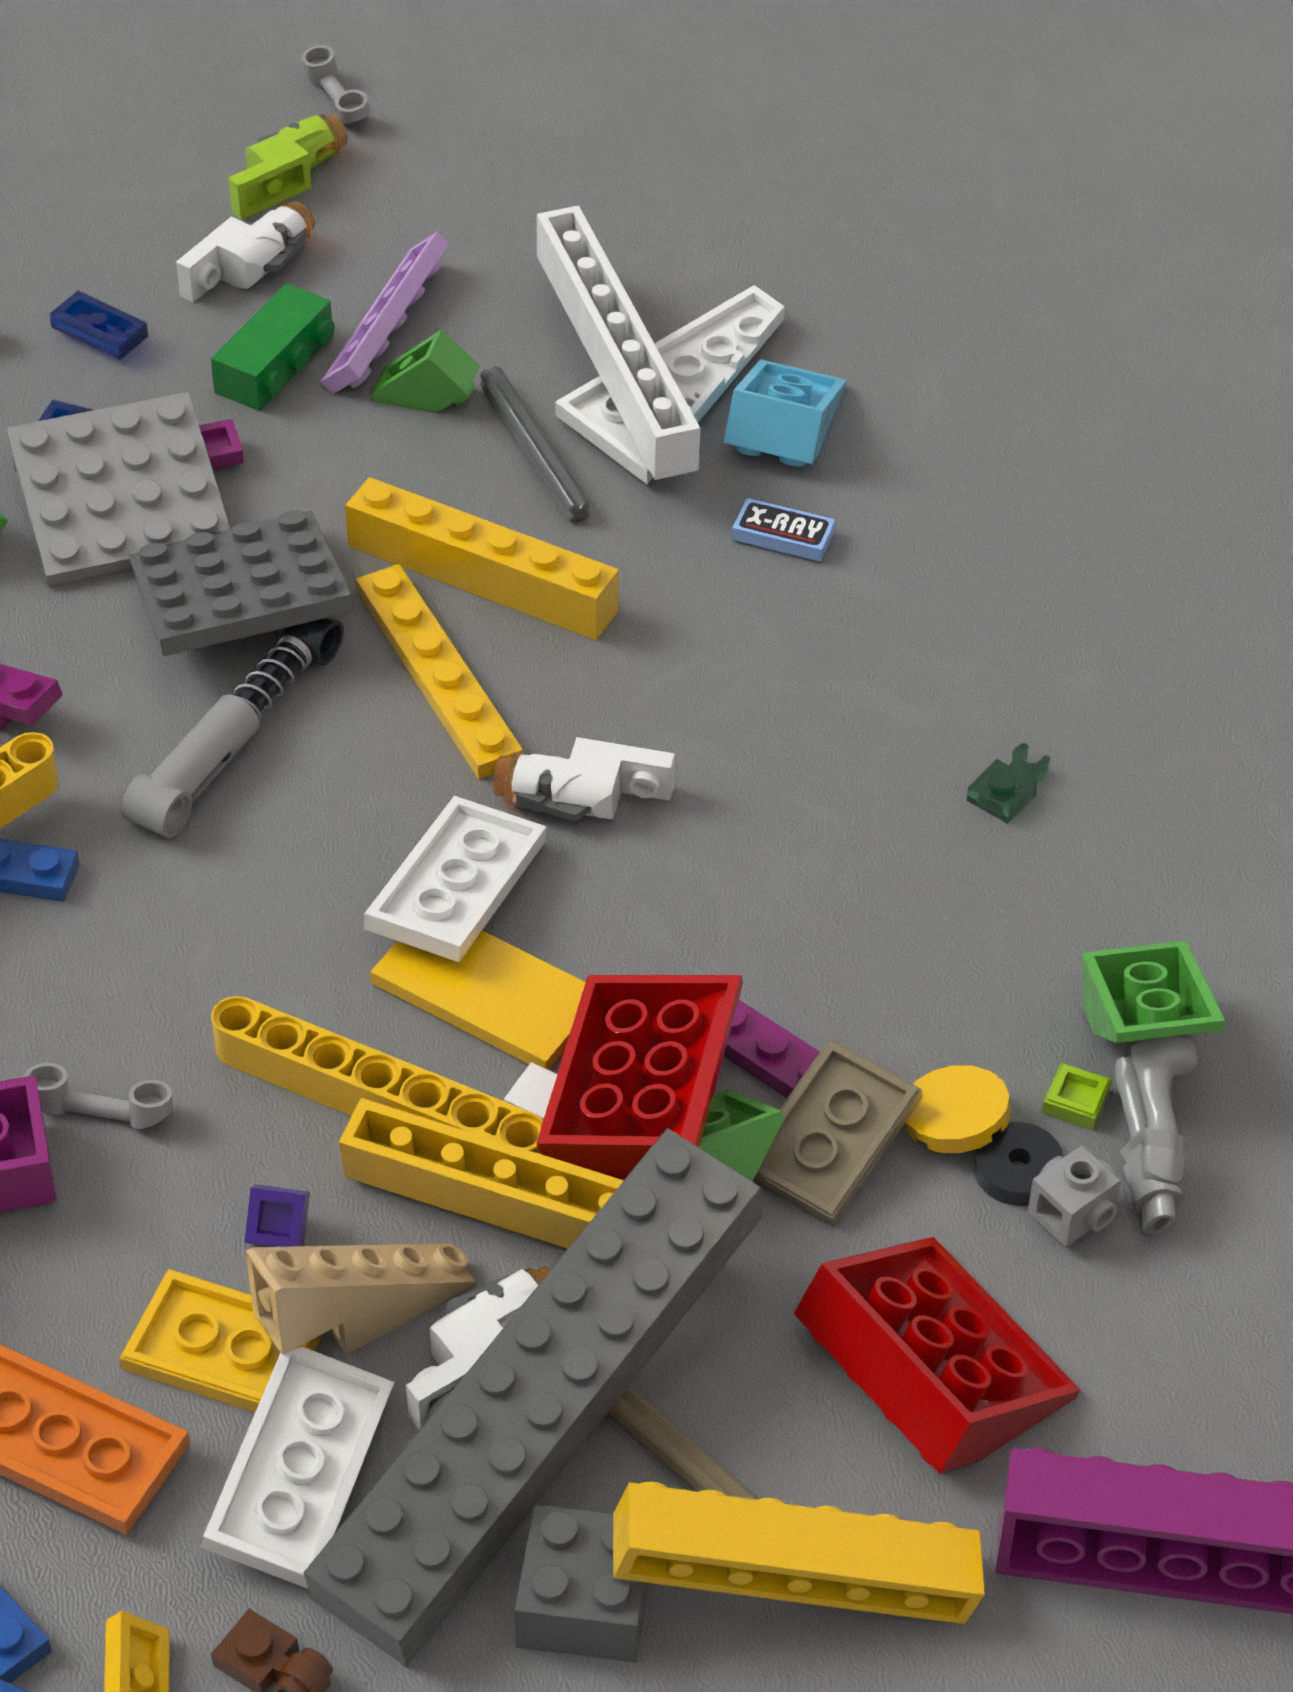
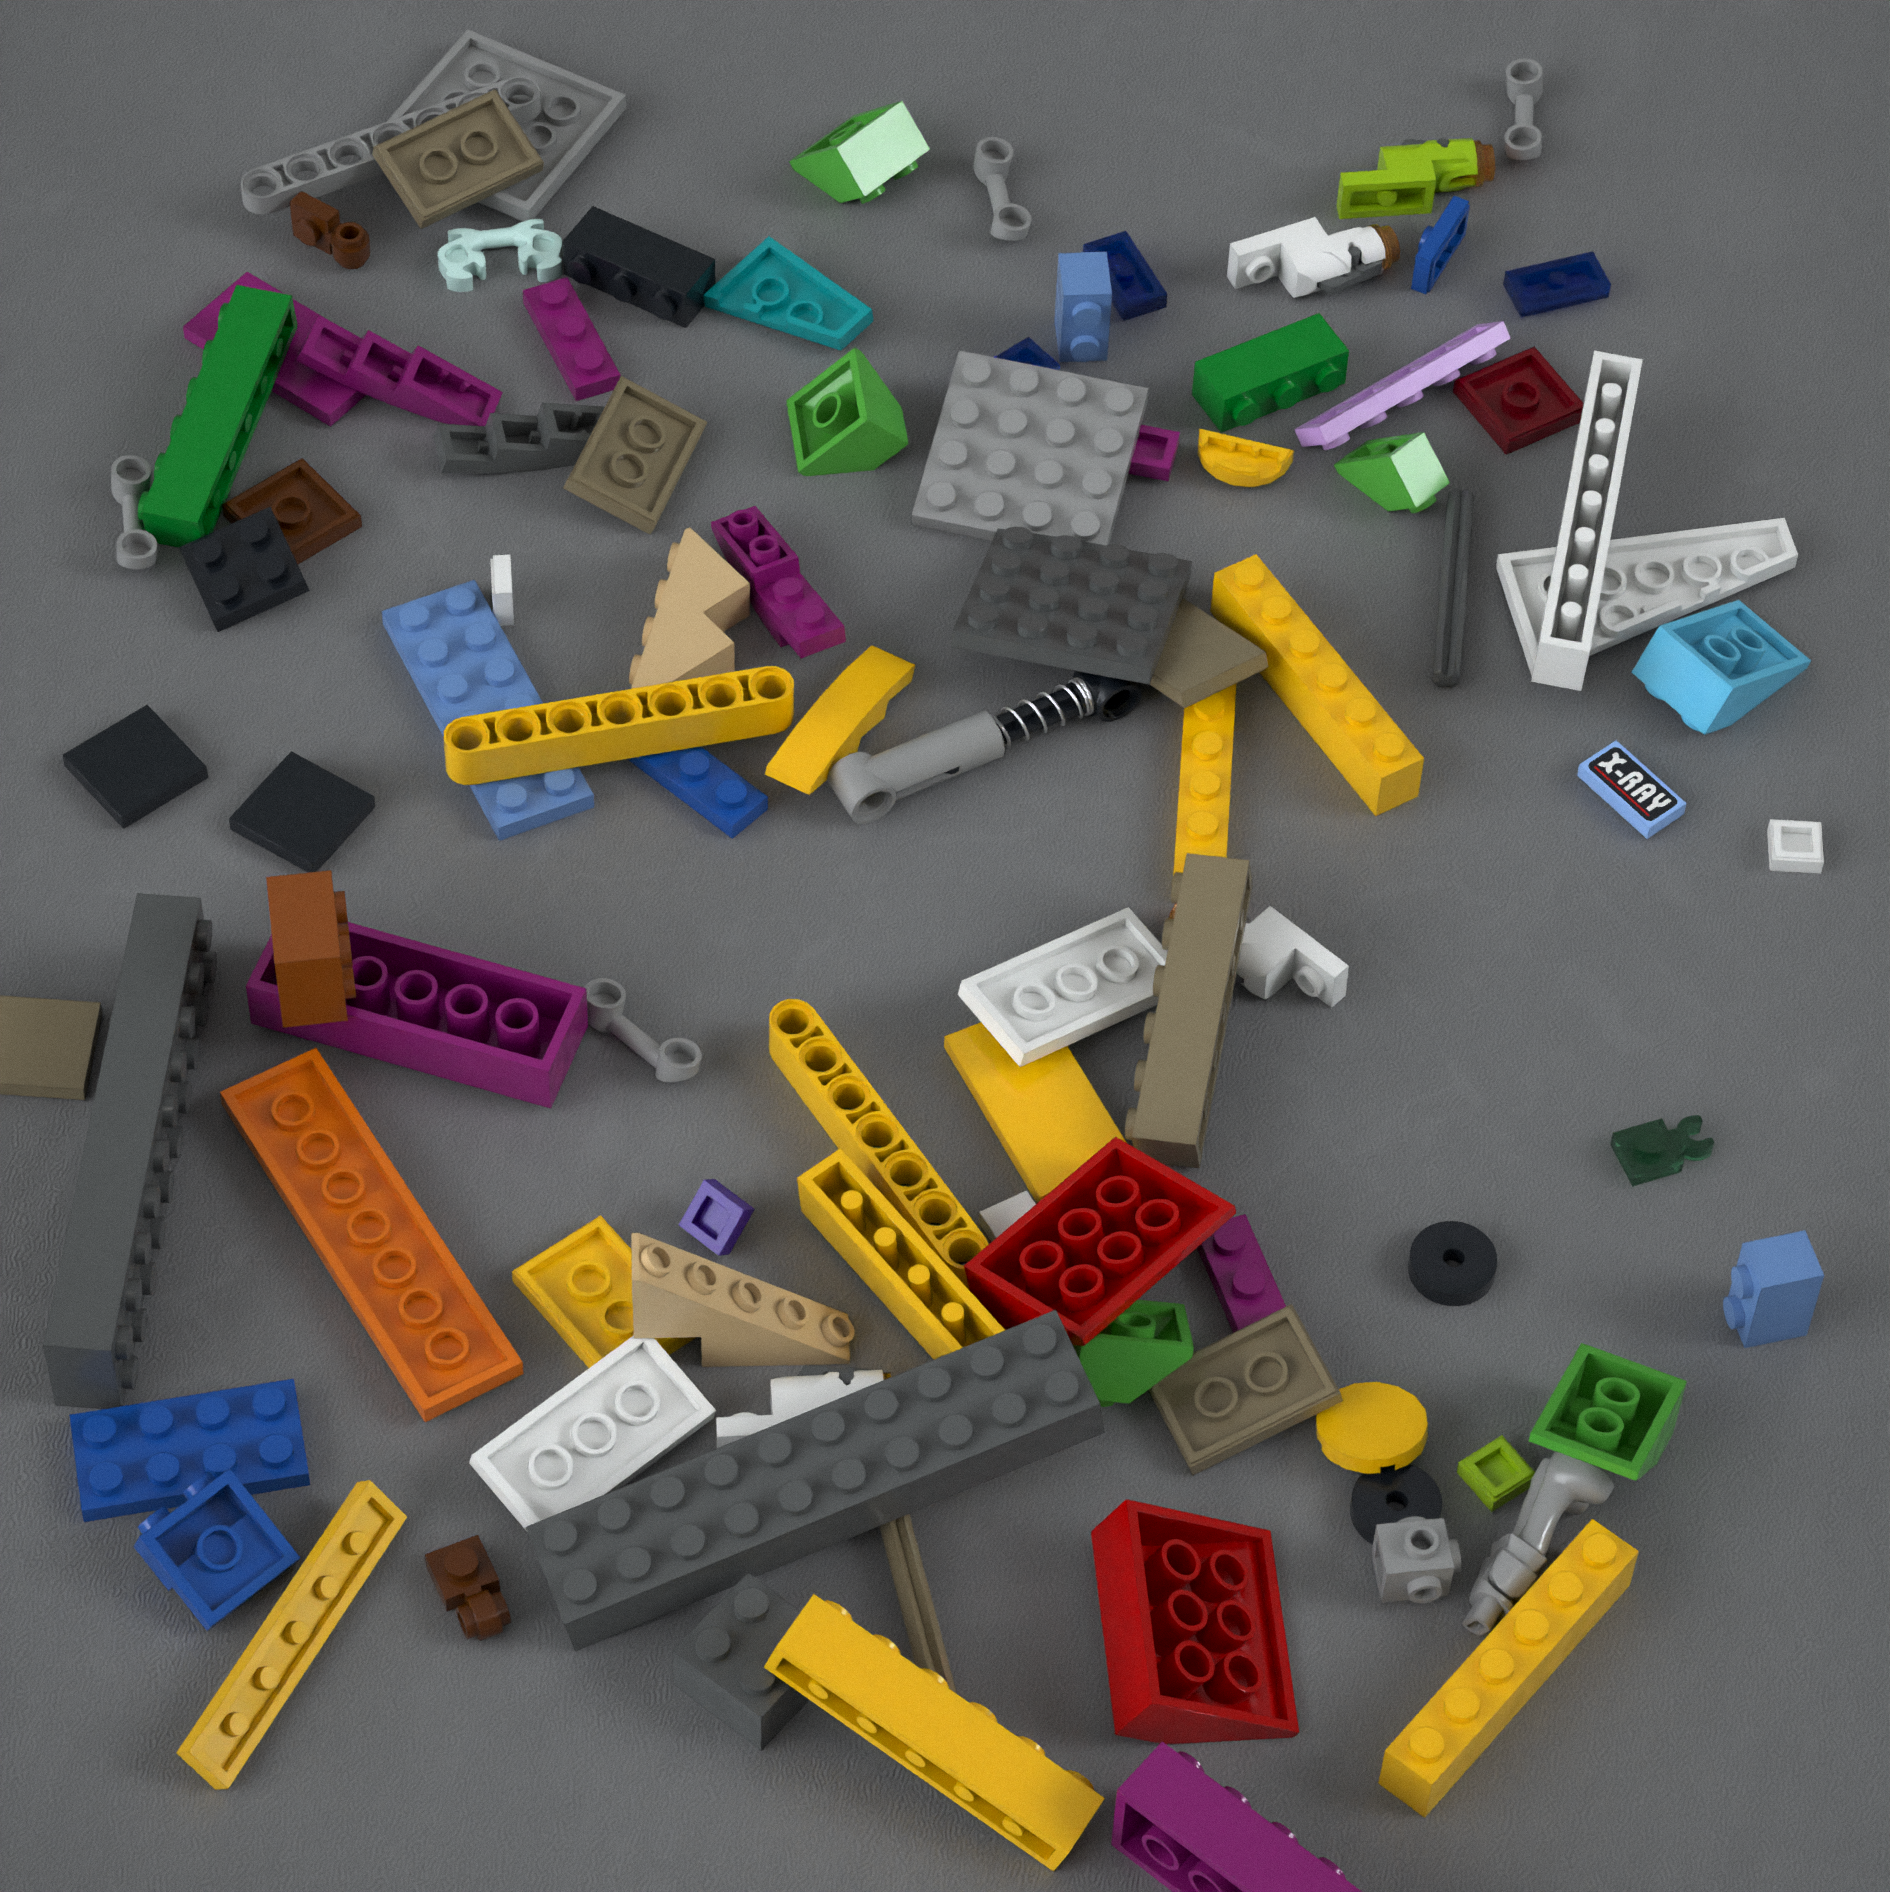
camera: 30 degrees right, 5 degrees up
(87, 354) = (1083, 306): none -> medium blue brick
(99, 761) = (840, 719): none -> yellow slope
(293, 421) = (1242, 460): none -> yellow plate
(339, 202) = (1439, 244): none -> blue plate
(383, 574) = (1203, 657): none -> dark tan tile
(452, 195) = (1557, 284): none -> clear blue plate
(483, 289) = (1519, 400): none -> dark red tile
(572, 843) = (1191, 1009): none -> dark tan brick
(917, 968) = (1446, 1283): none -> black piece
(938, 516) = (1795, 846): none -> white tile
(1191, 839) = (1773, 1289): none -> medium blue brick
(1212, 1246) = (1507, 1668): none -> yellow brick

